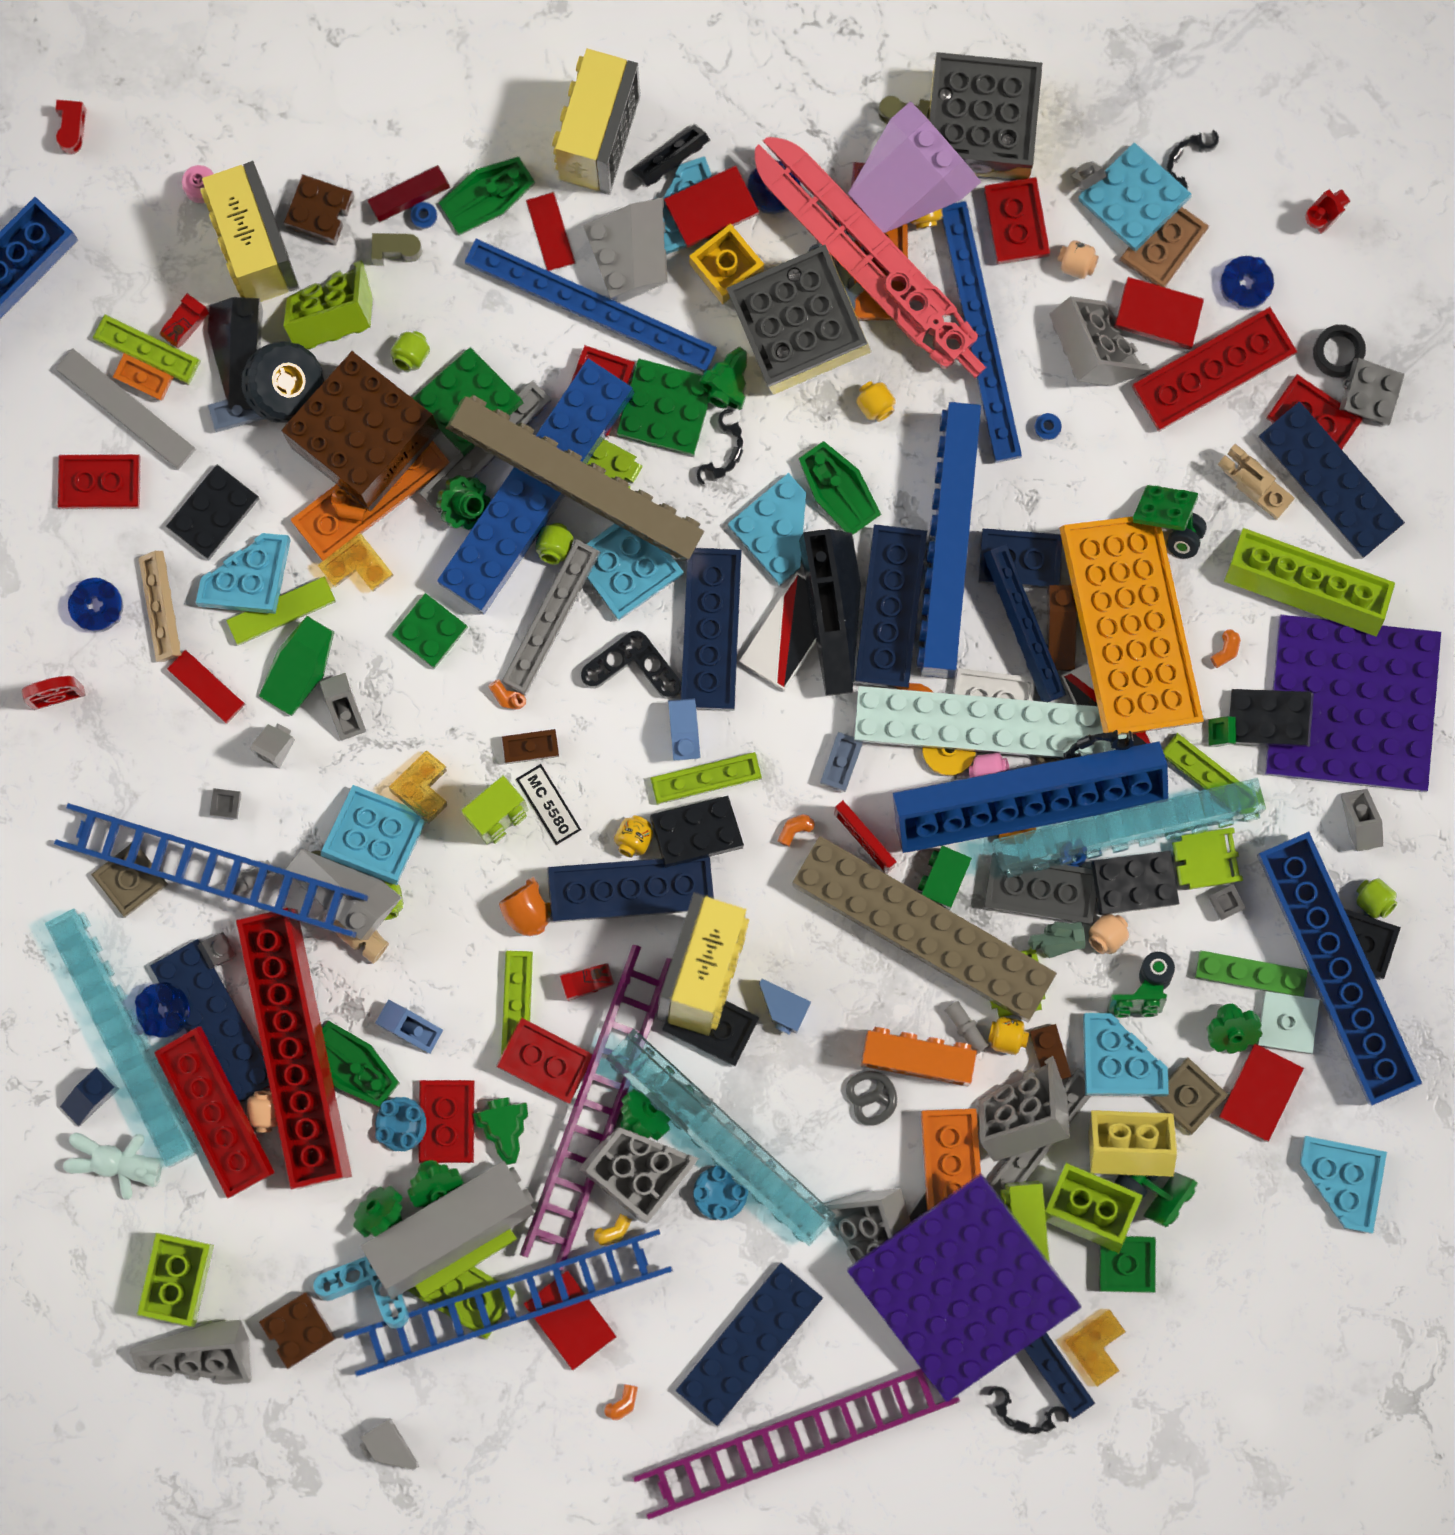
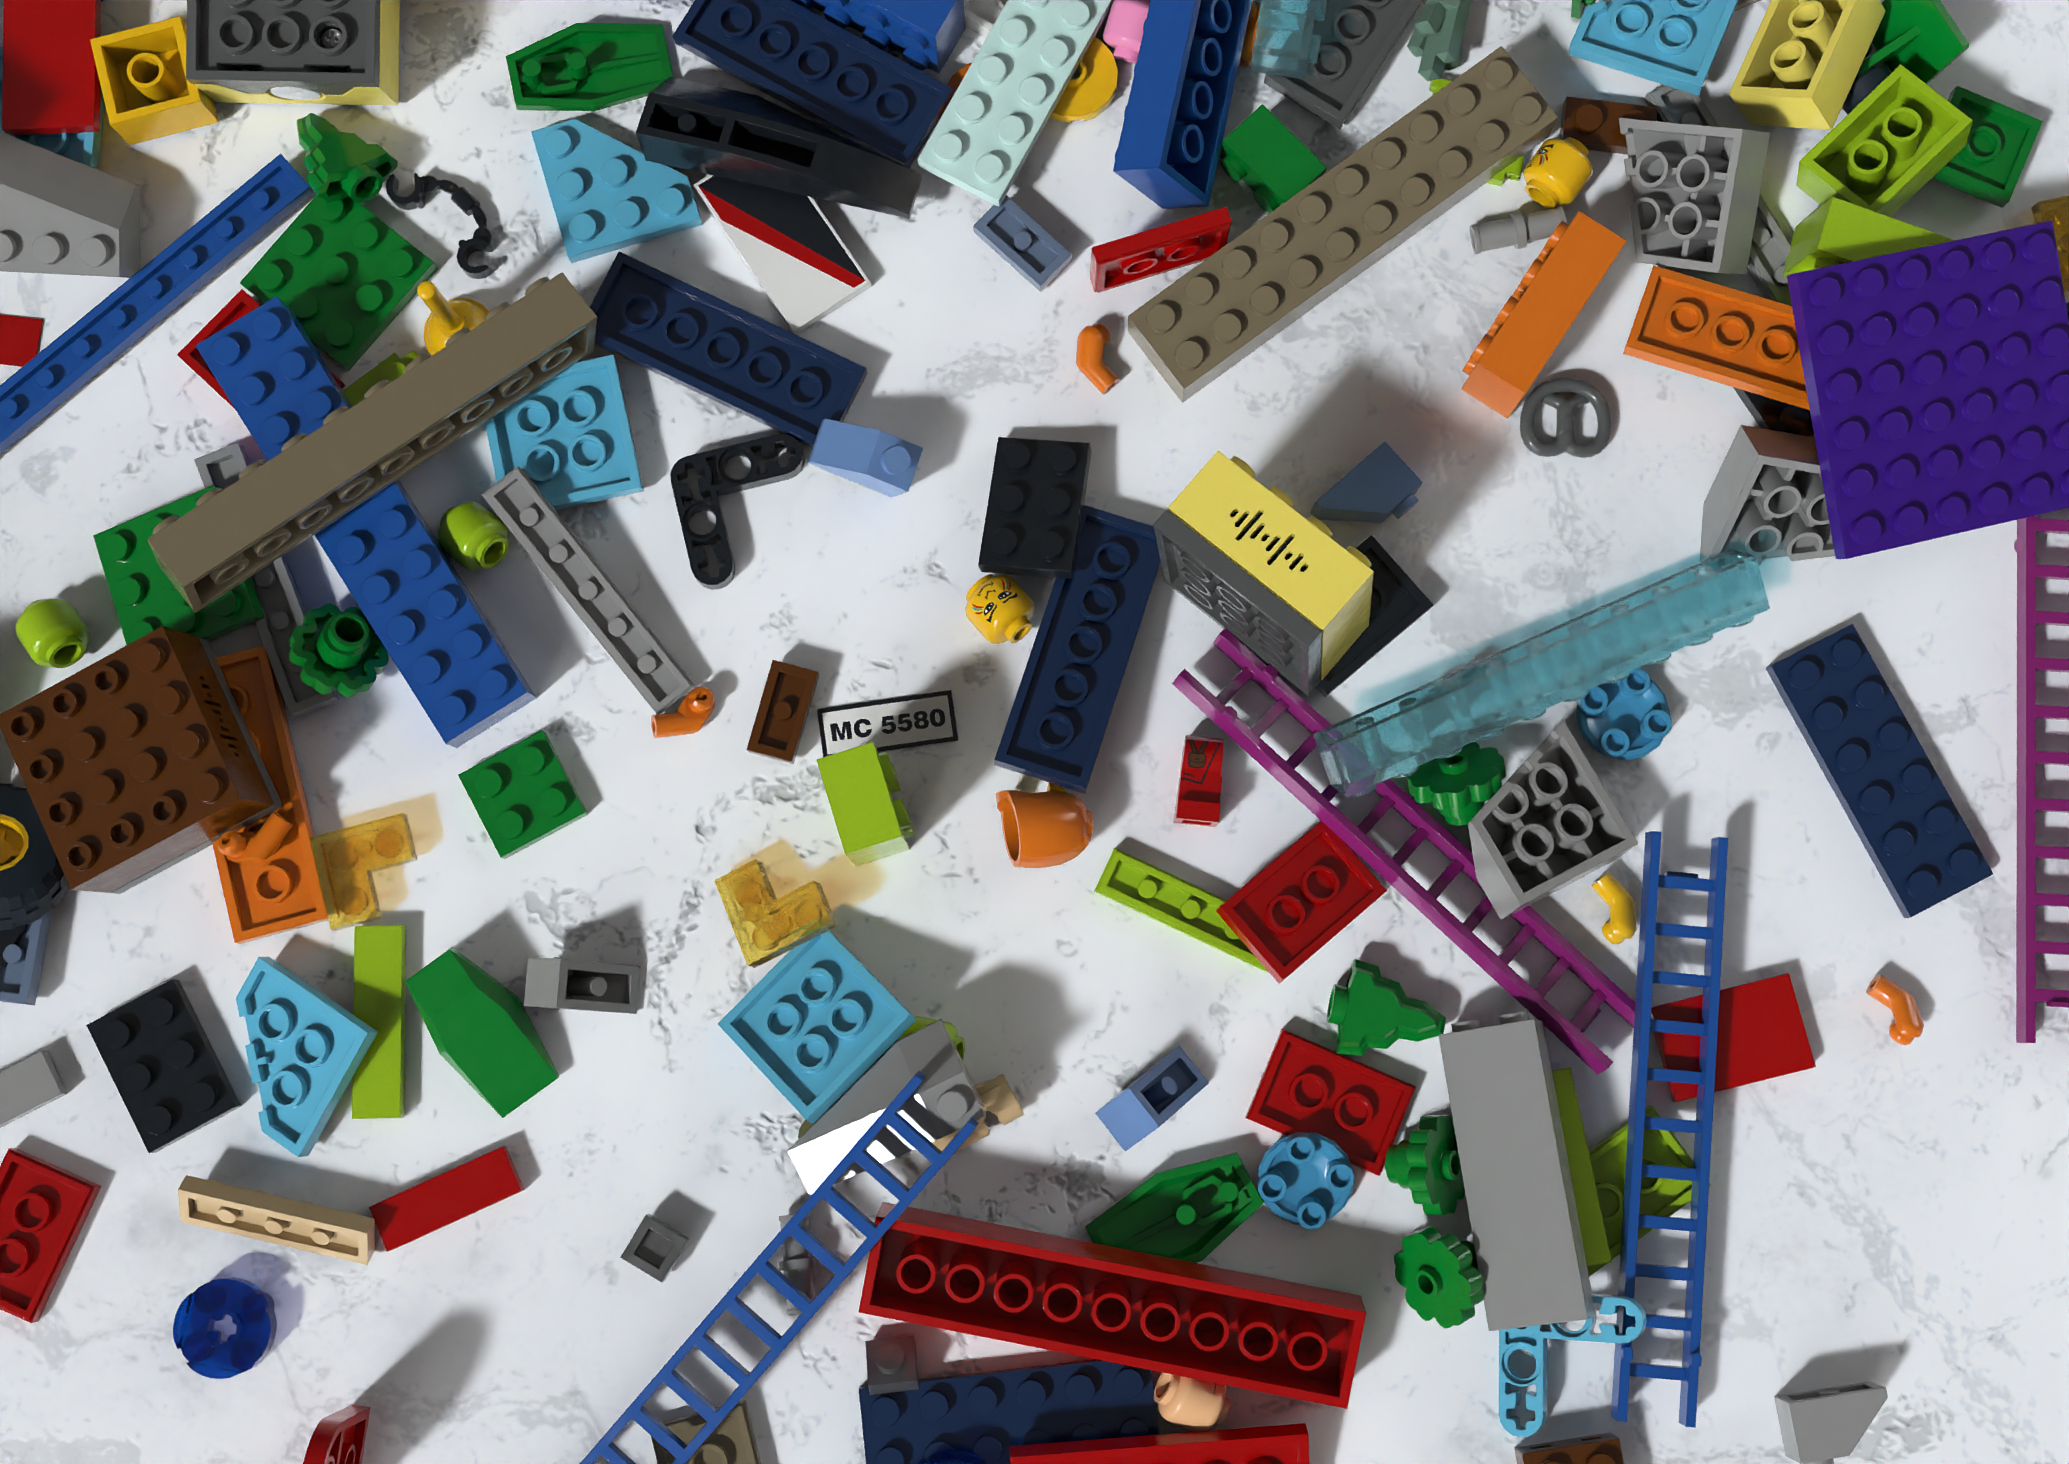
camera: 65 degrees left, 0 degrees up
(273, 744) = (592, 1127): light grey slope -> none
(663, 484) = (447, 316): none -> yellow piece
(706, 778) = (955, 461): lime tile -> none

